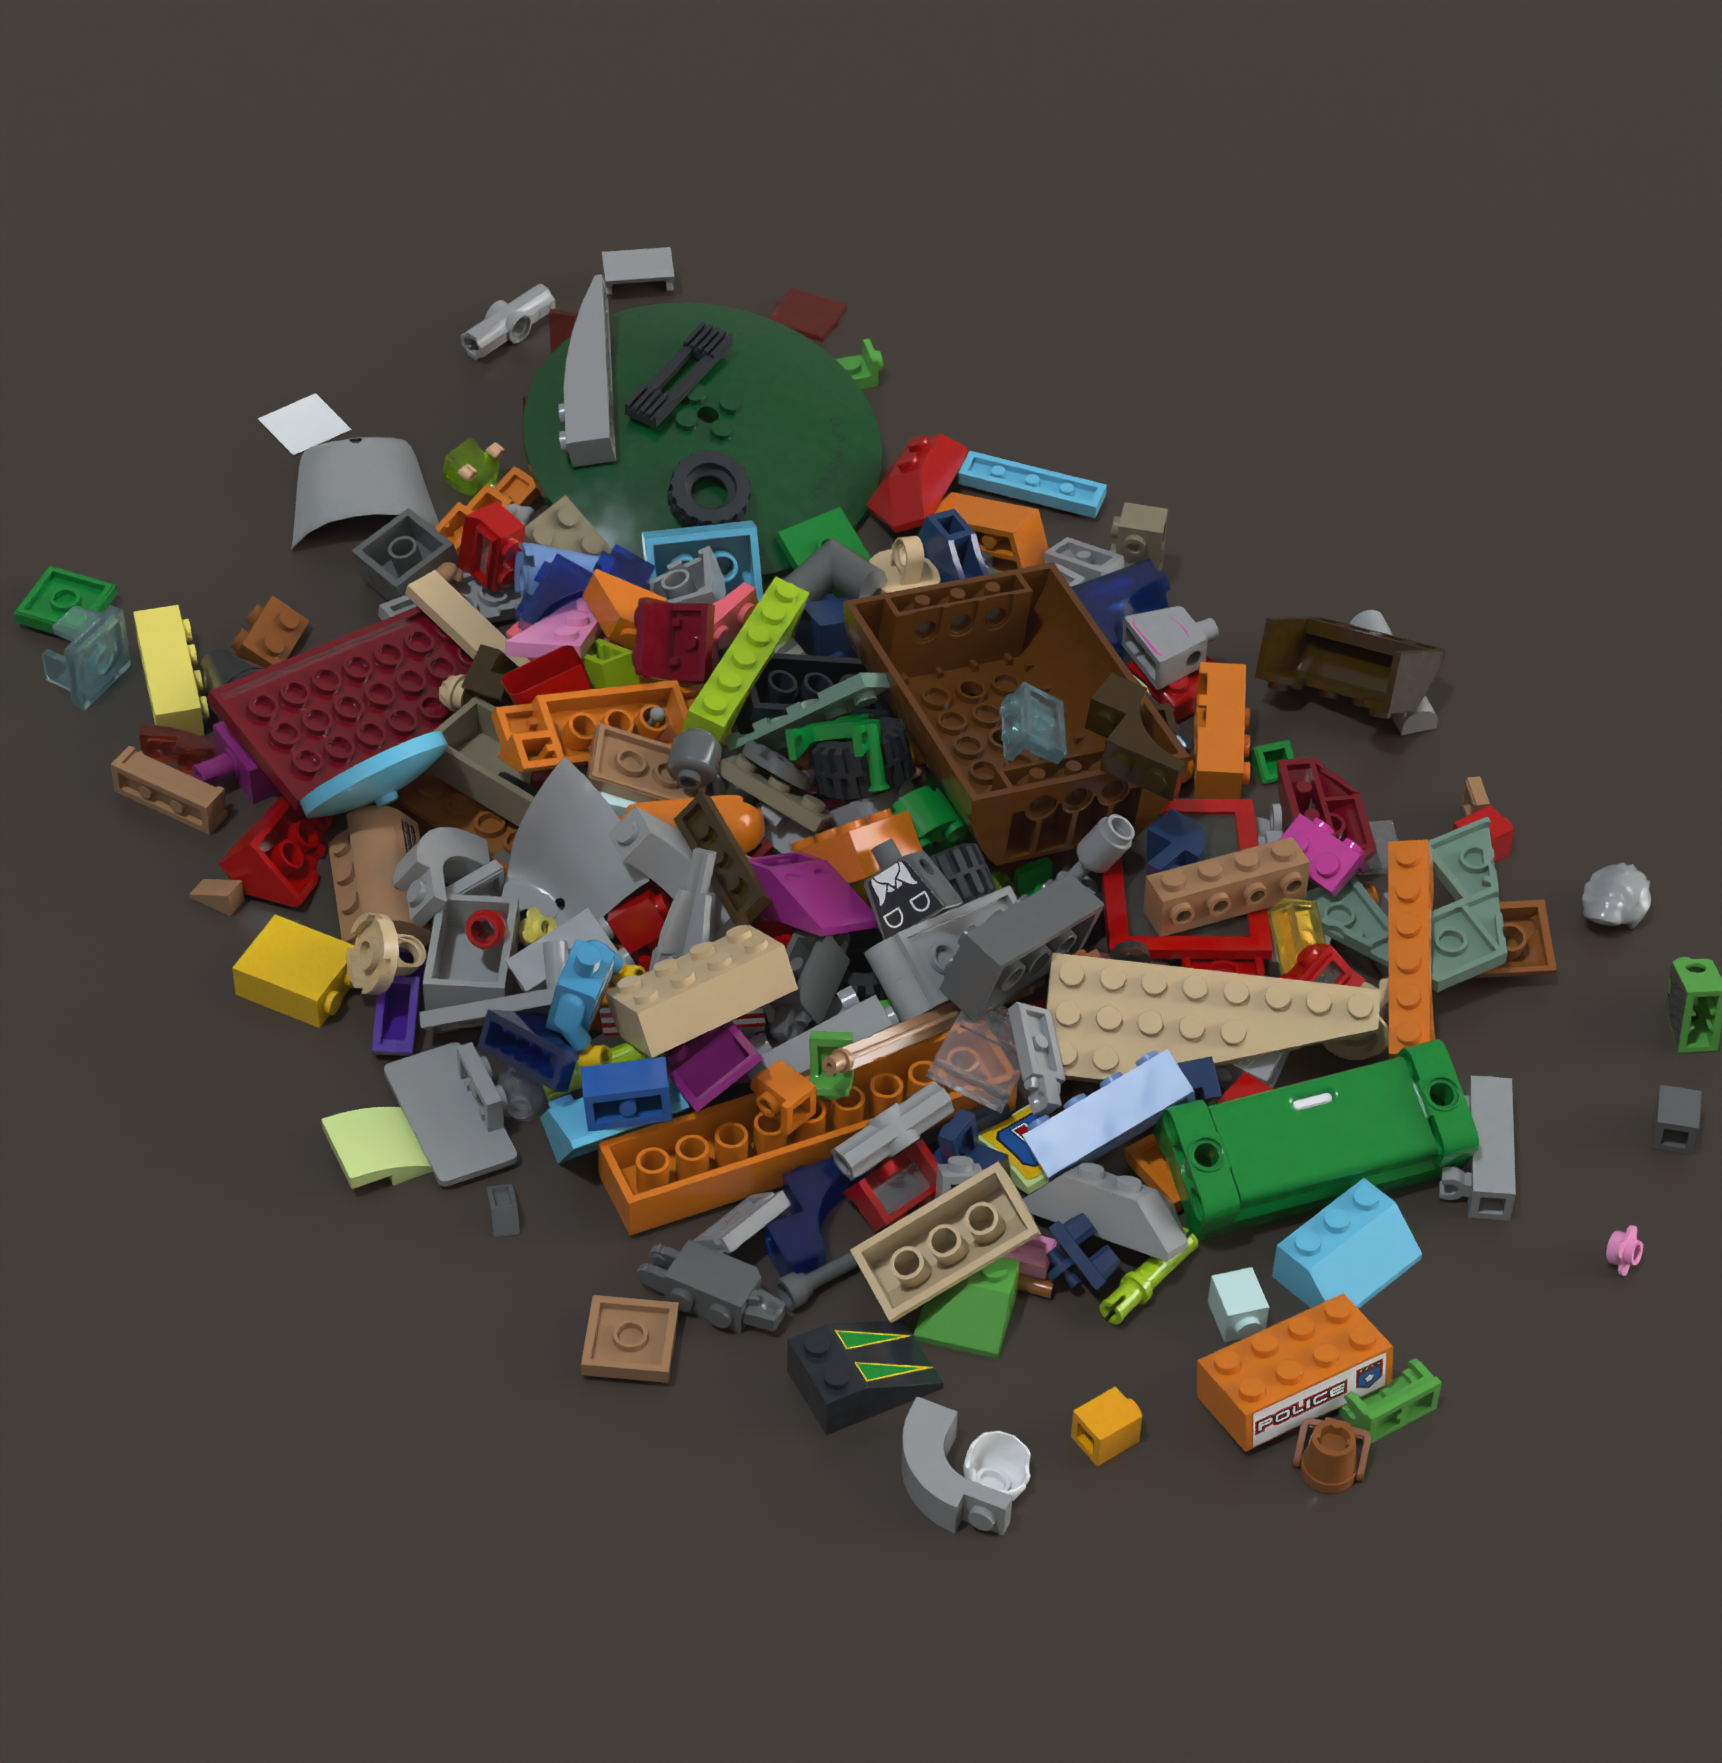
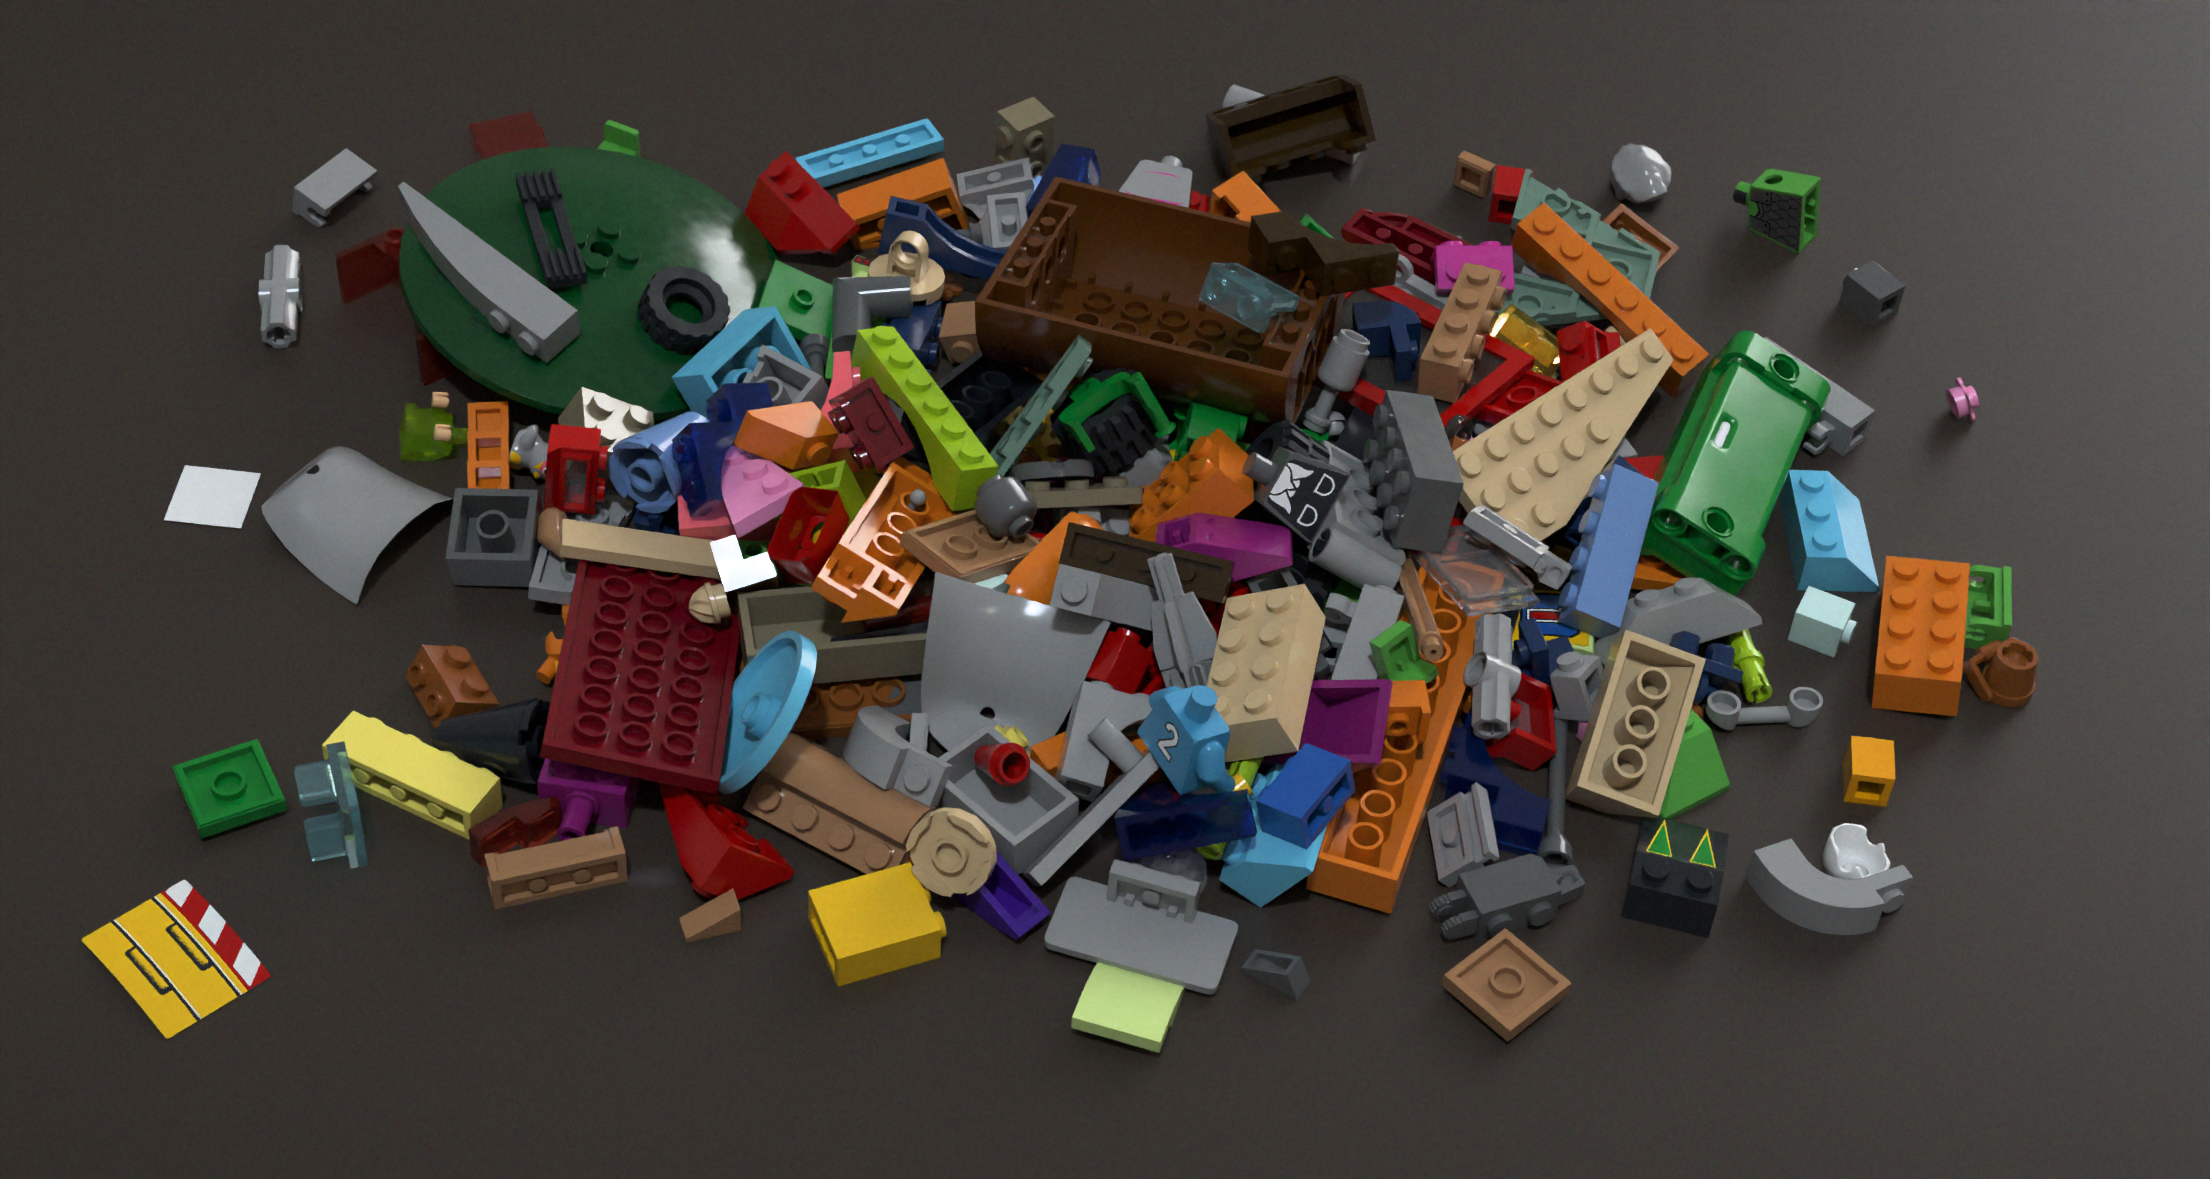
camera: 50 degrees left, 0 degrees up
(1064, 1304) = (1801, 710): none -> light grey bar

